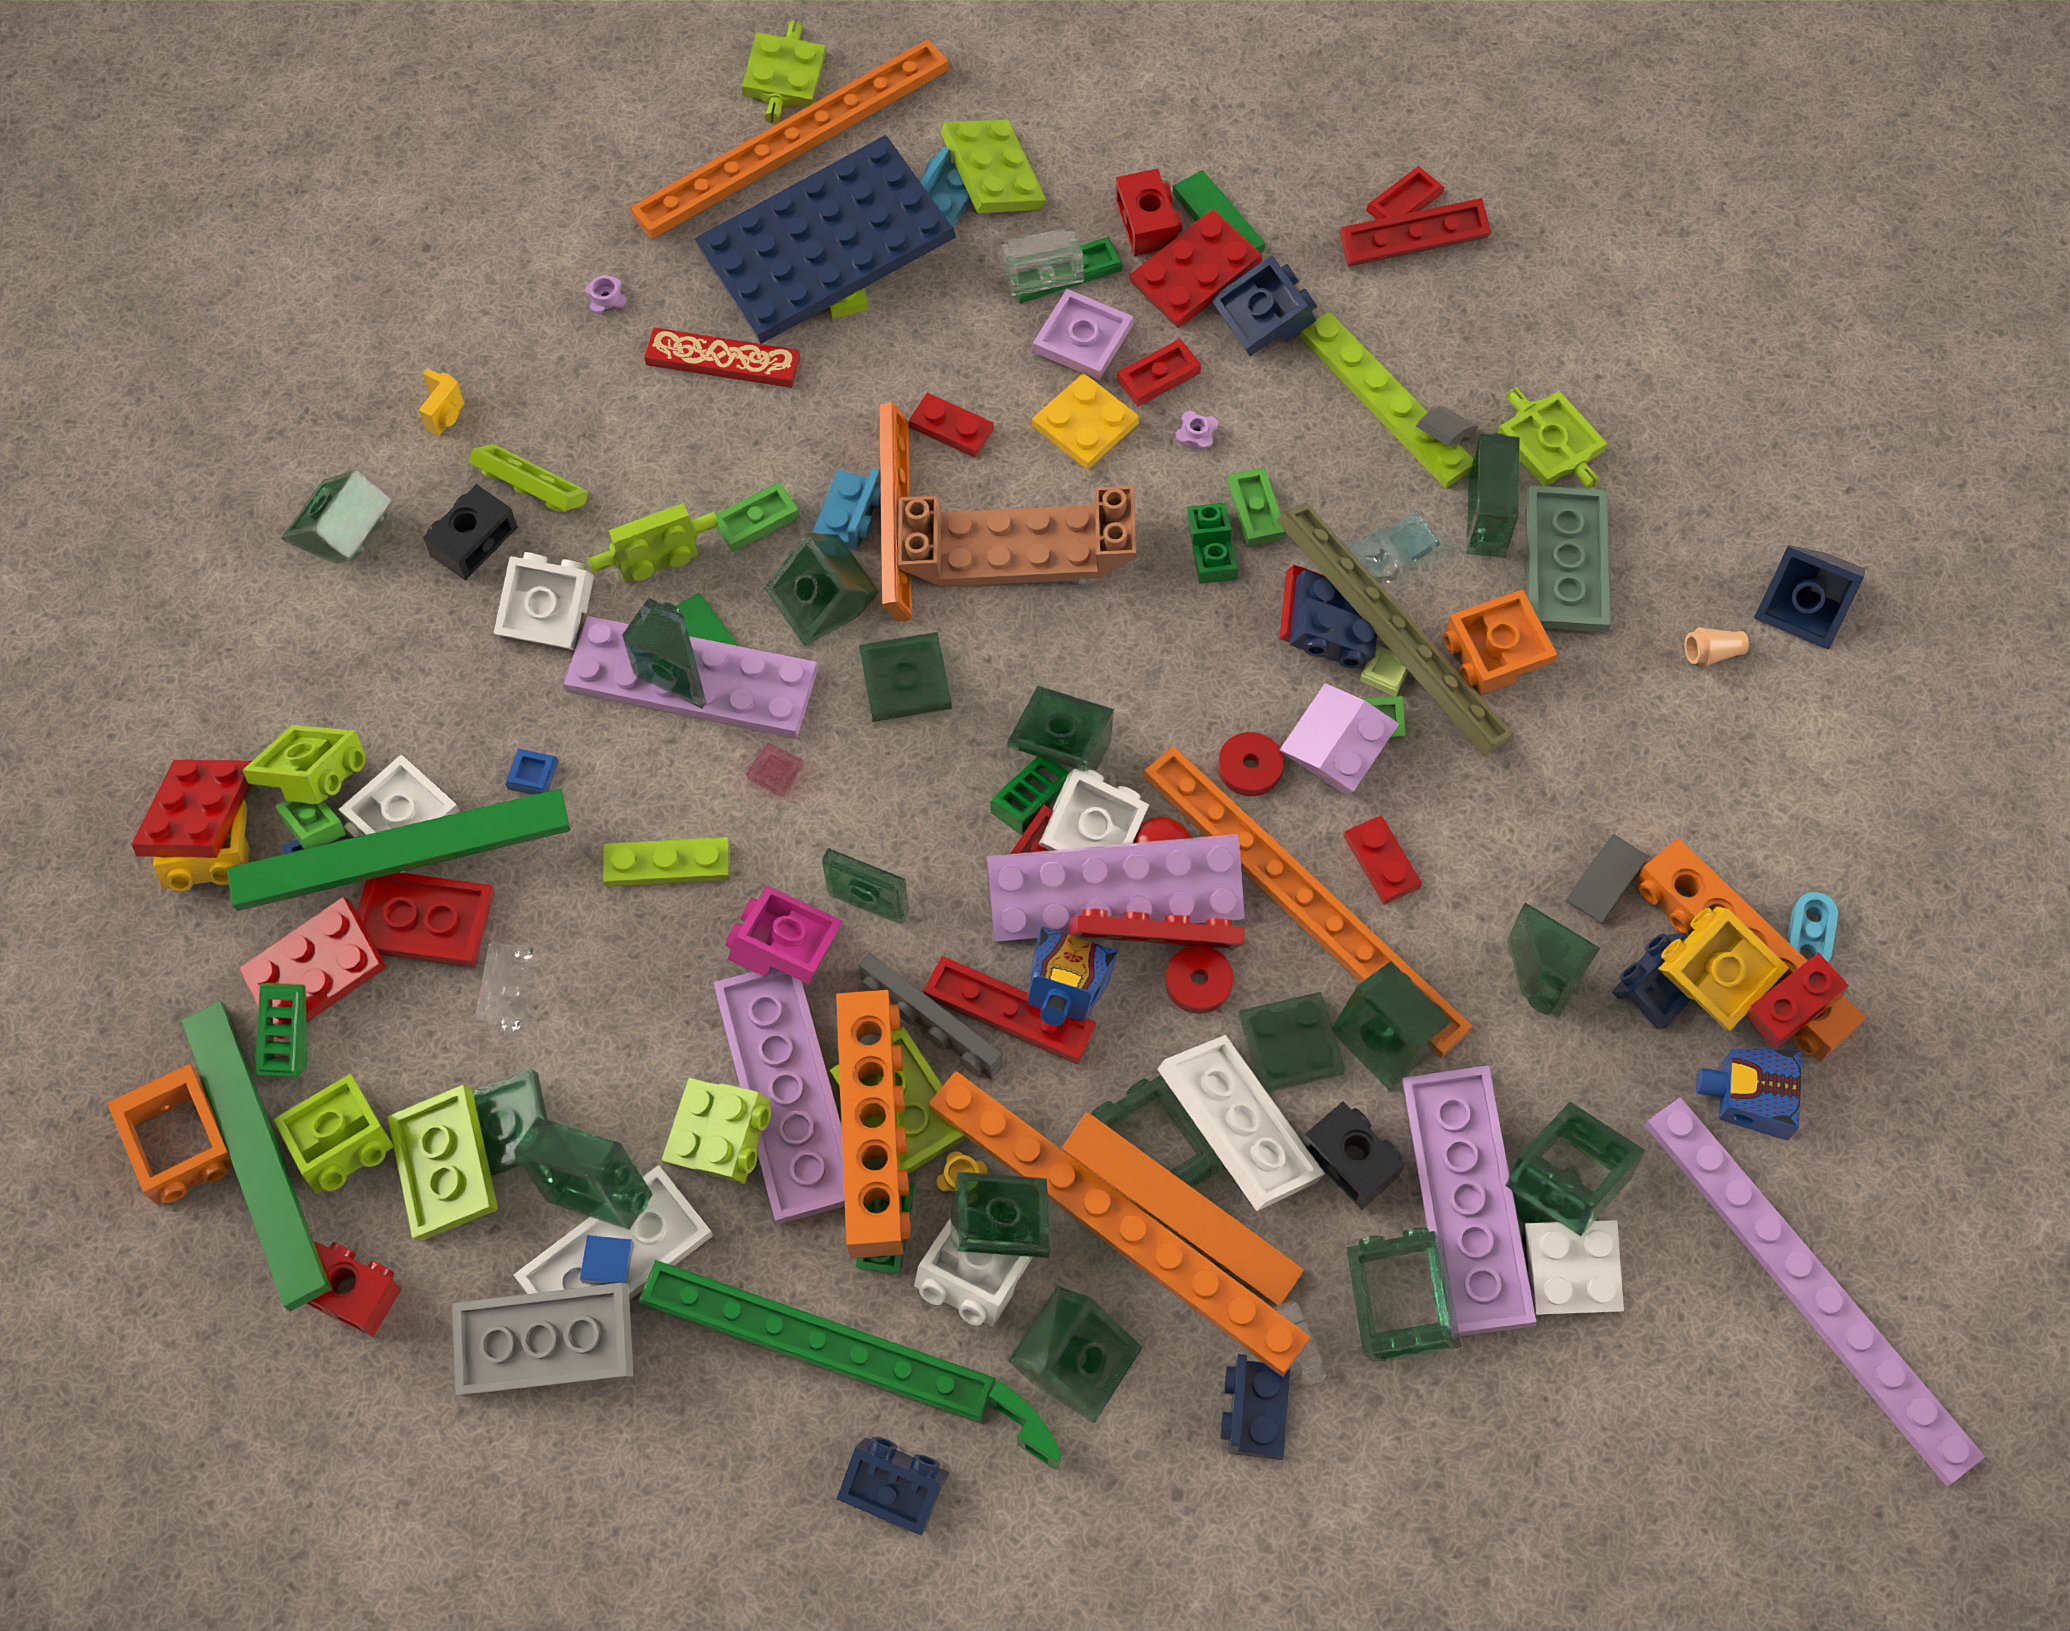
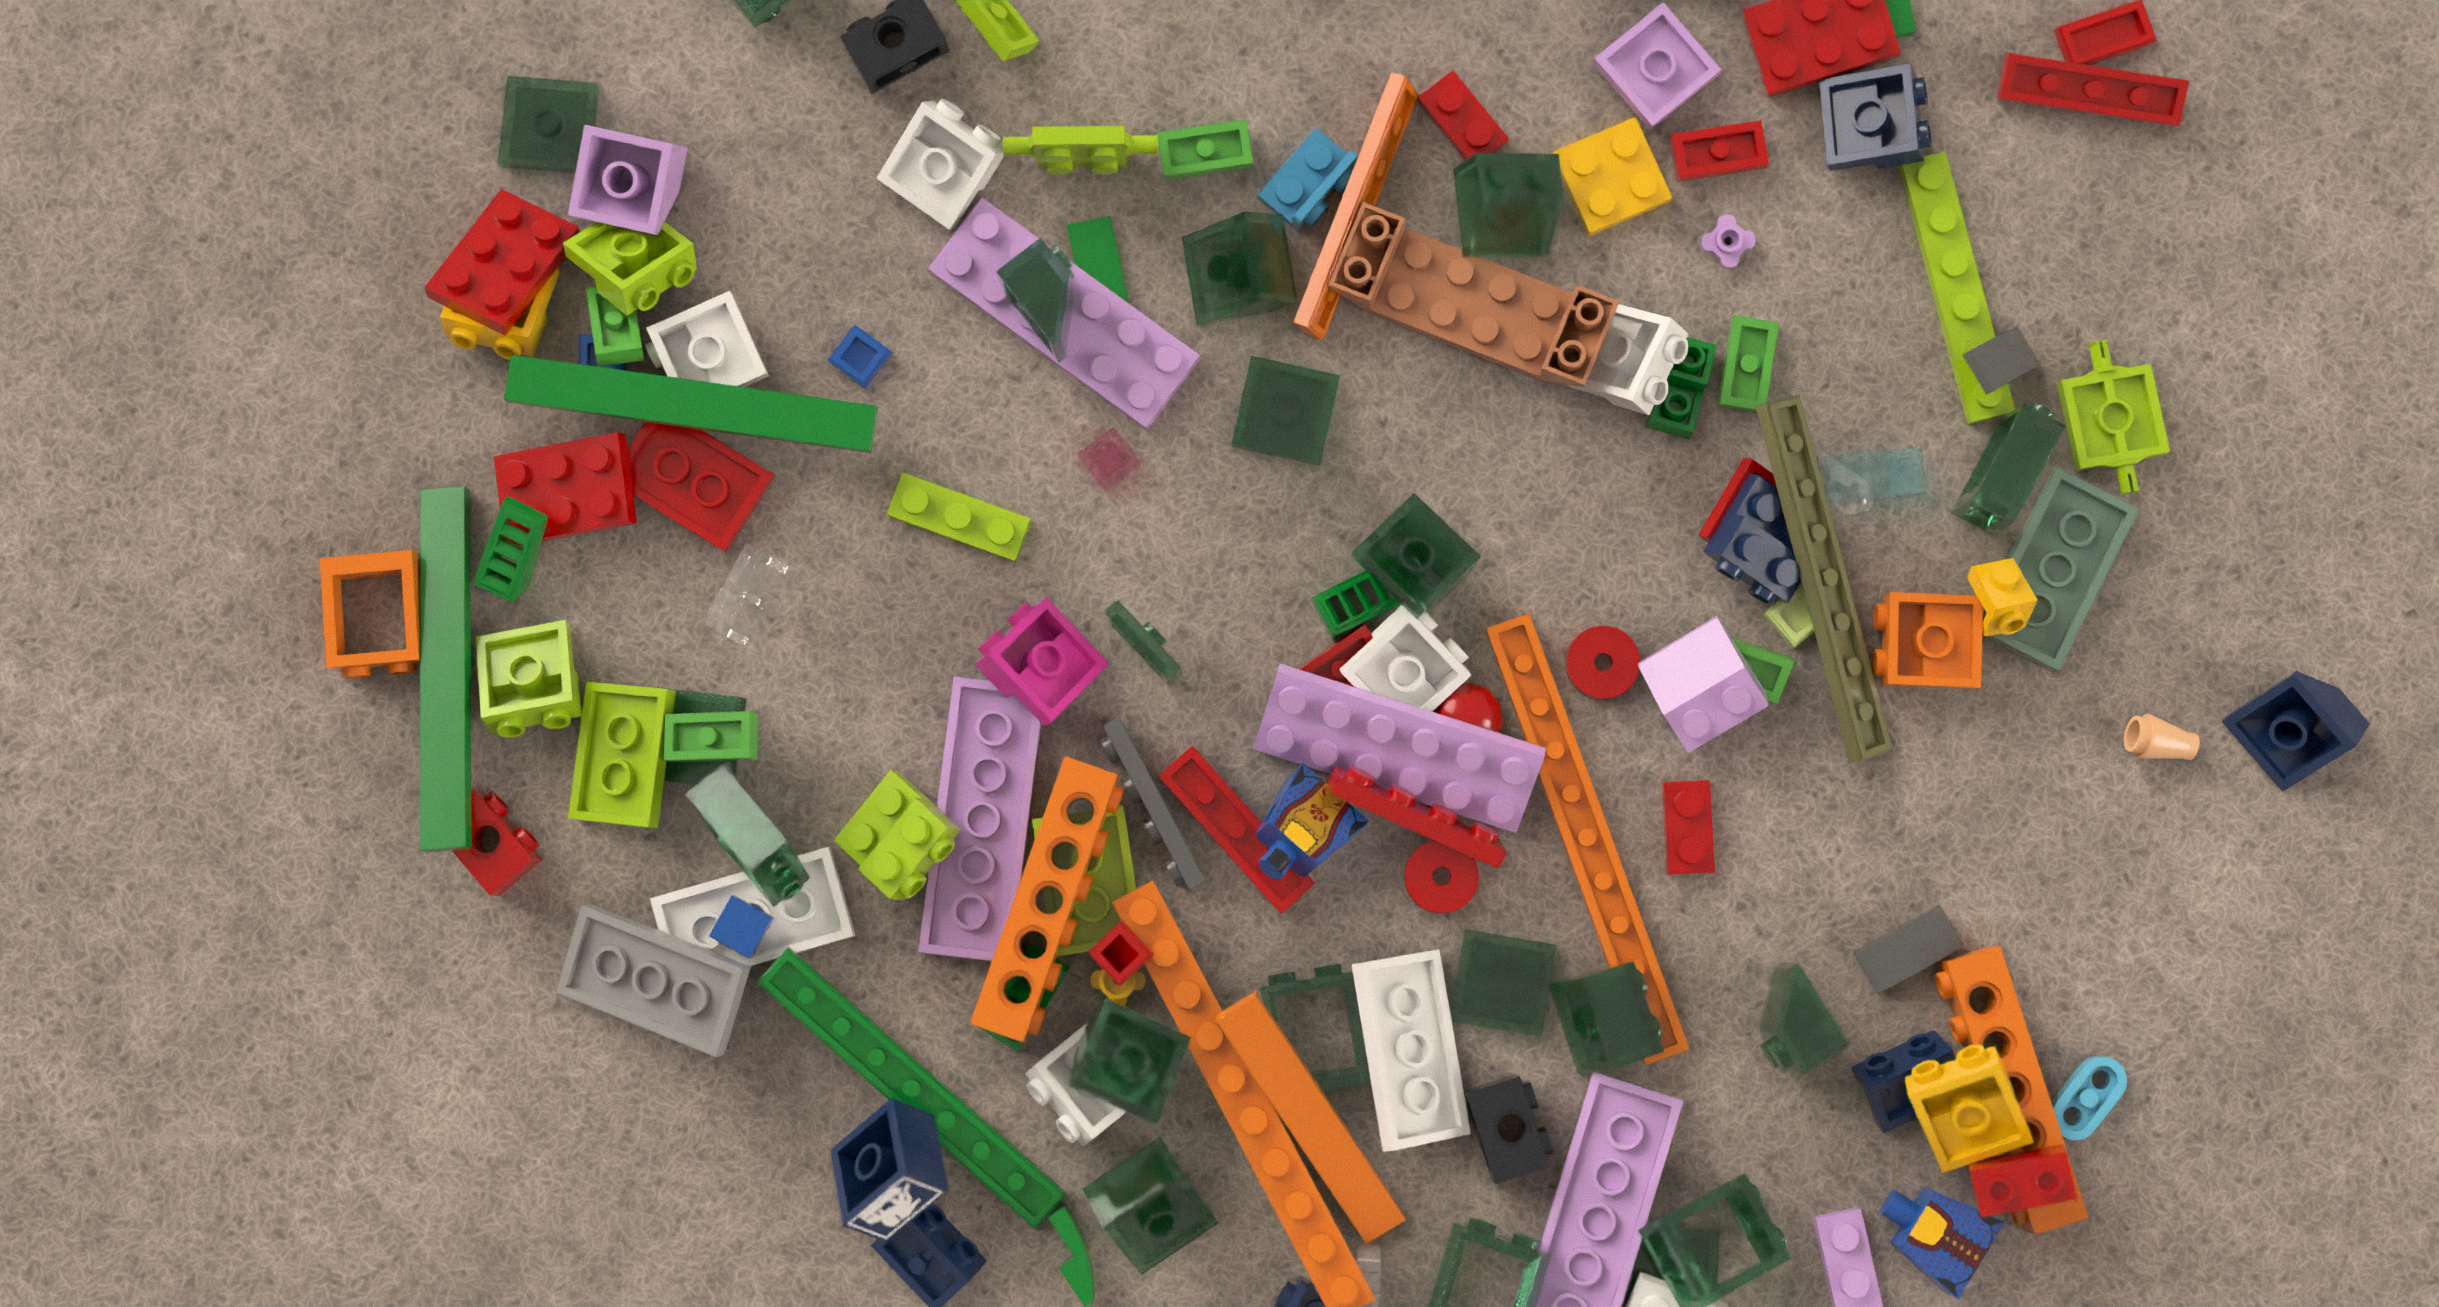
camera: 25 degrees right, 20 degrees up
(198, 699) = (545, 123): none -> clear green plate
(279, 703) = (626, 179): none -> lavender slope
(517, 1106) = (711, 736): none -> bright green plate
(826, 1409) = (889, 1170): none -> dark blue brick
(954, 1139) = (1120, 953): none -> red slope
(1013, 460) = (1508, 204): none -> clear green slope
(1166, 531) = (1637, 359): none -> white plate
(1541, 581) = (2003, 596): none -> yellow bracket

